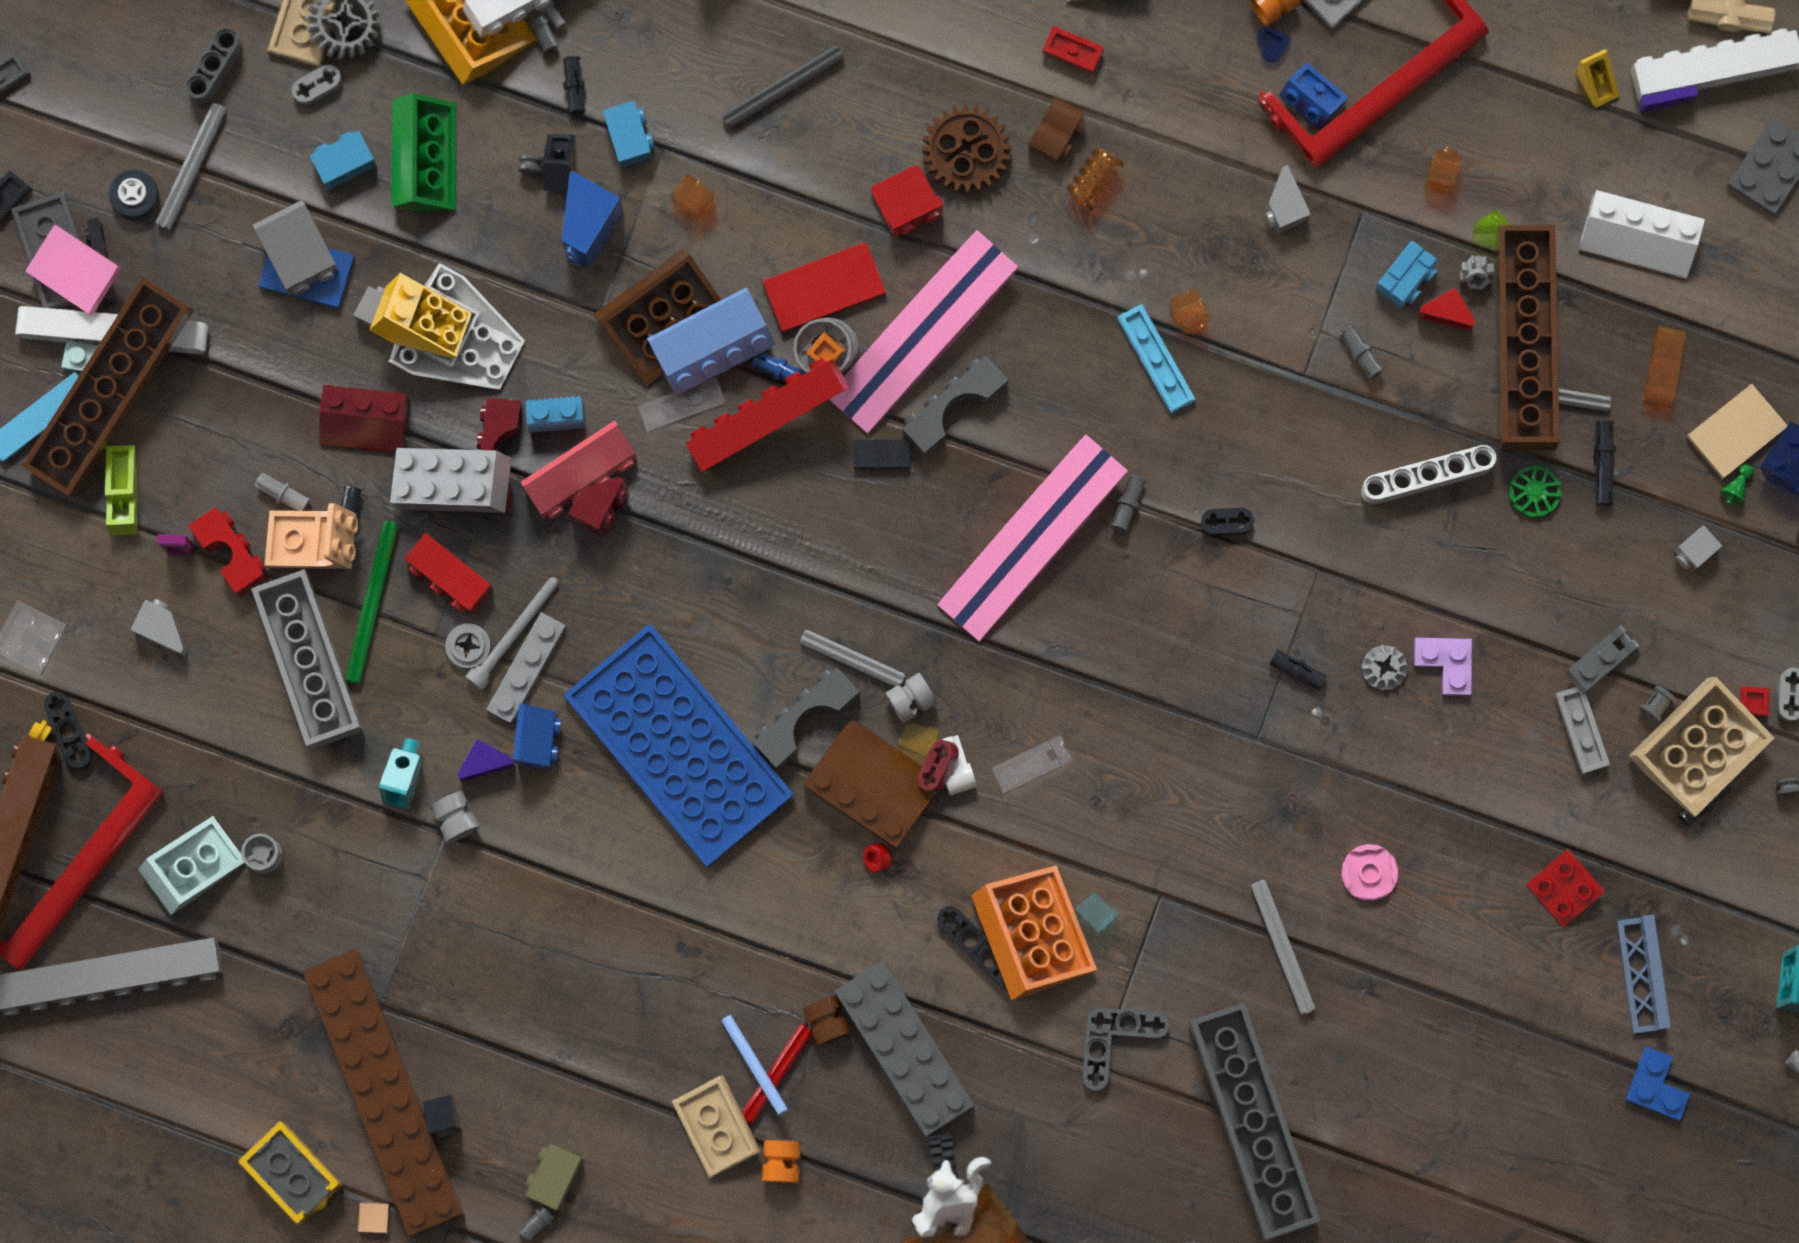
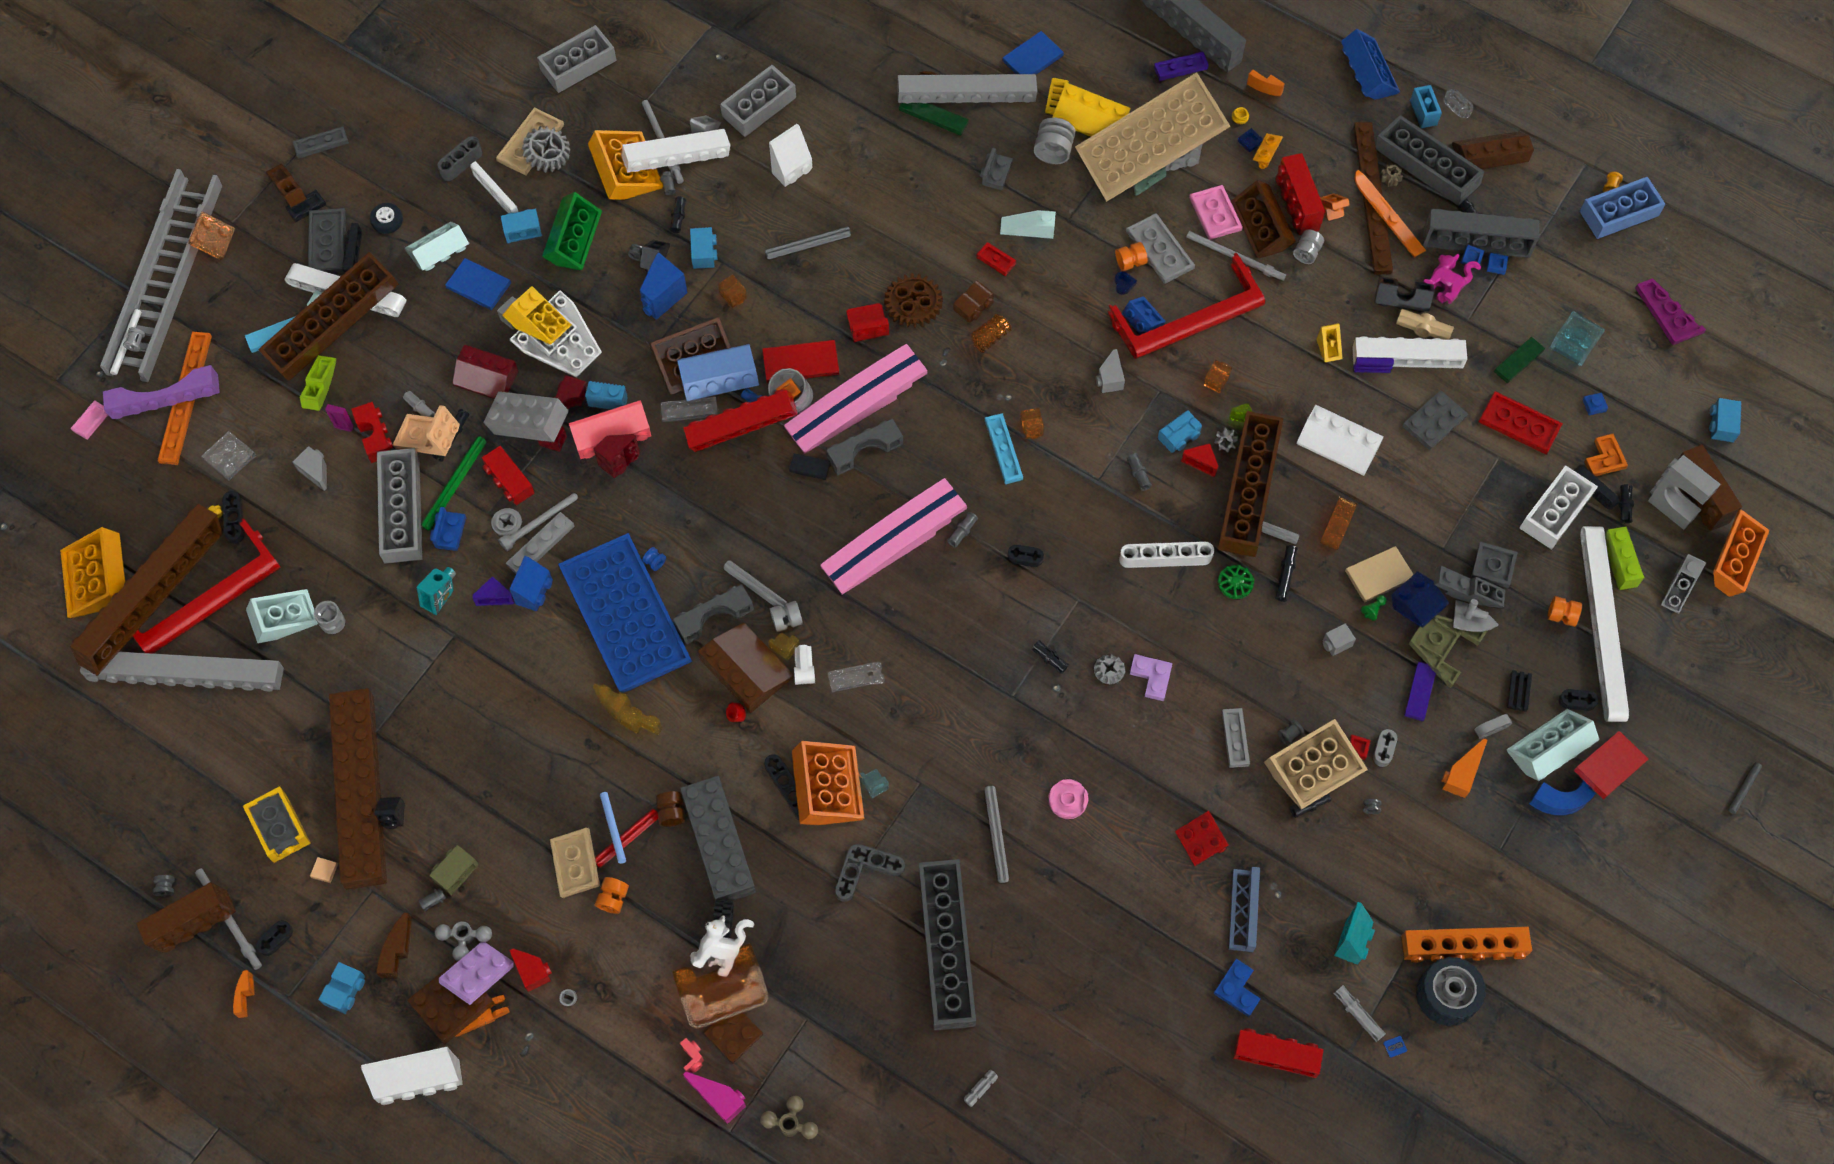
camera: 10 degrees right, 15 degrees down
(73, 269) = (332, 248): bright pink tile -> none
(191, 166) = (427, 211): light grey axle -> none
(225, 223) = (437, 246): none -> light aqua slope
(283, 109) = (493, 188): none -> white tile
(296, 248) = (473, 263): light grey slope -> none
(313, 79) = (519, 182): light grey beam -> none
(387, 677) = (447, 530): none -> blue bracket
(454, 816) = (463, 623): light grey wheel -> none
(698, 654) = (654, 559): none -> blue wheel
(710, 888) = (620, 709): none -> clear yellow slope
(938, 765) = (792, 660): dark red beam -> none
(1601, 659) = (1258, 695): dark grey plate -> none
(1727, 1163) = (1278, 1053): none -> red brick

